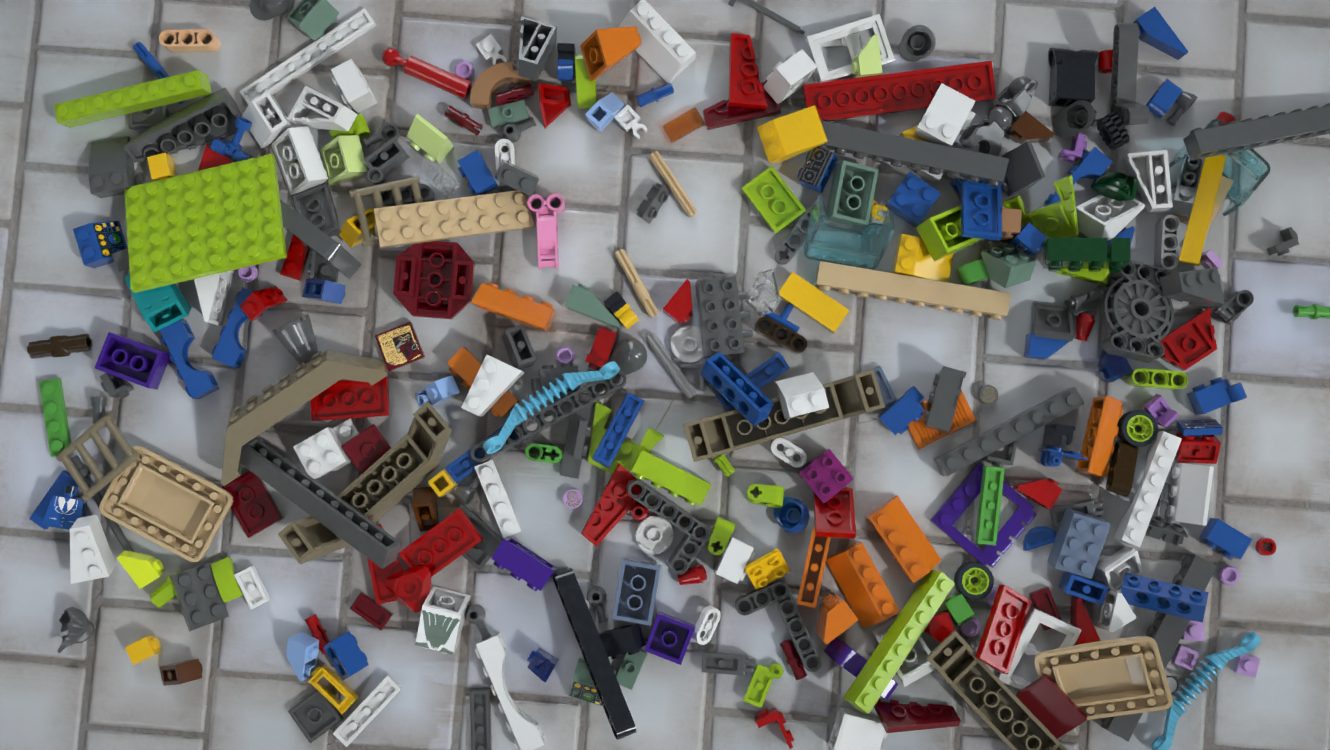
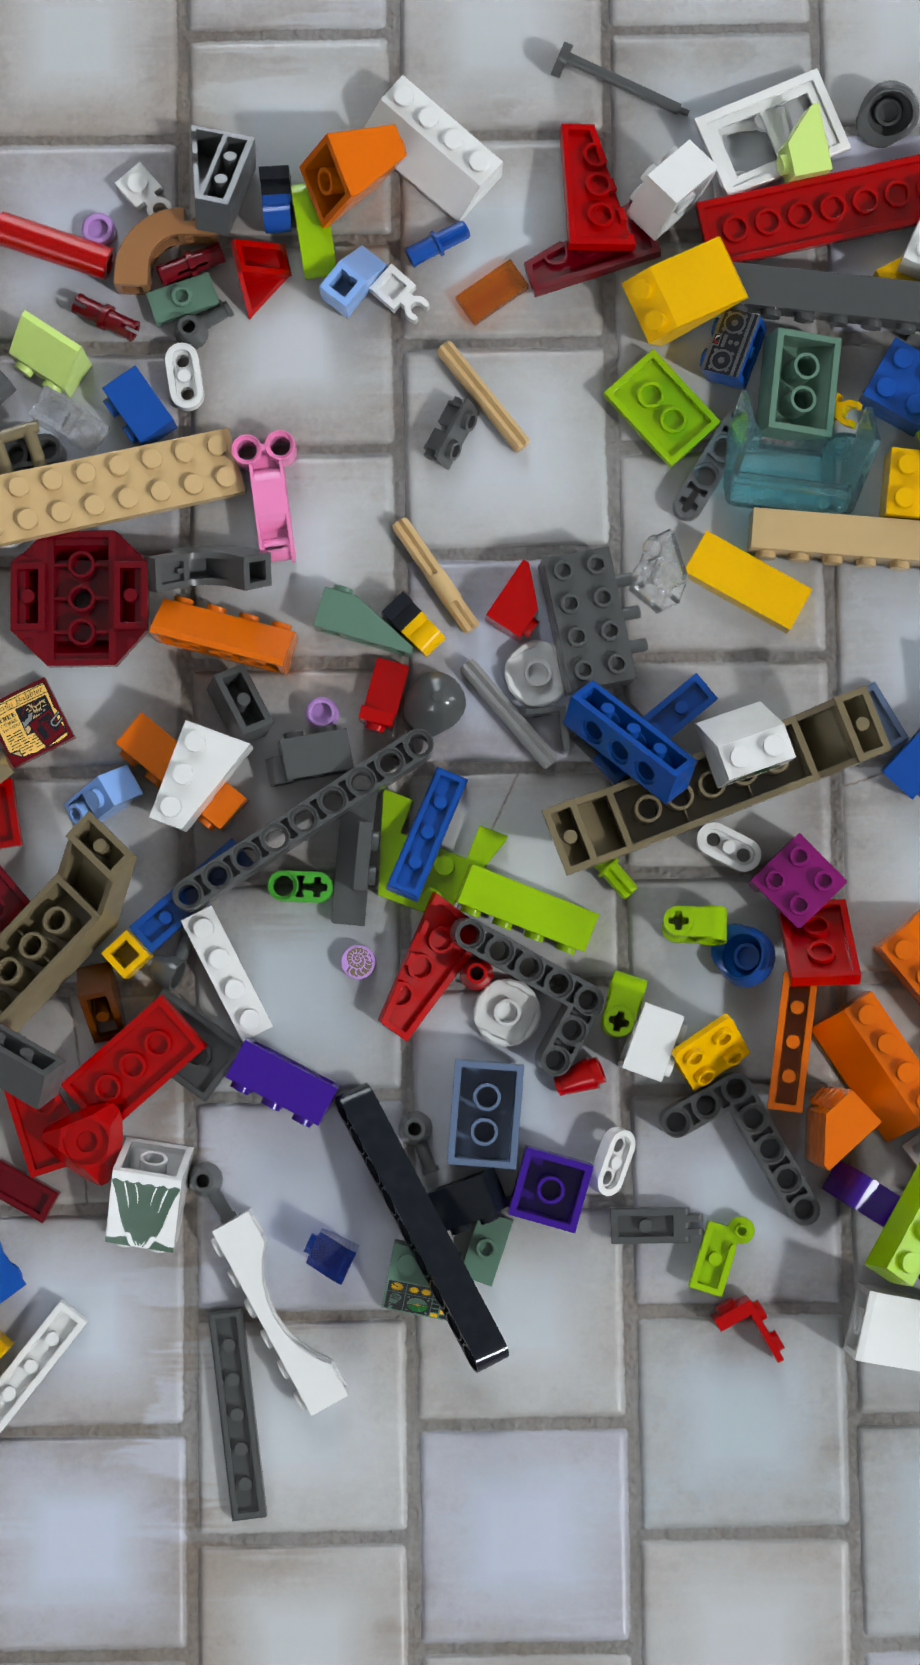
camera: 10 degrees left, 0 degrees up
(509, 266) = (210, 565): none -> dark grey arch
(516, 177) = (209, 408): dark grey brick -> none
(519, 412) = (252, 819): medium azure piece -> none
(782, 319) = (696, 616): blue piece -> none
(787, 343) = (713, 643): dark brown beam -> none
(793, 659) = (769, 1207): dark red pin -> none

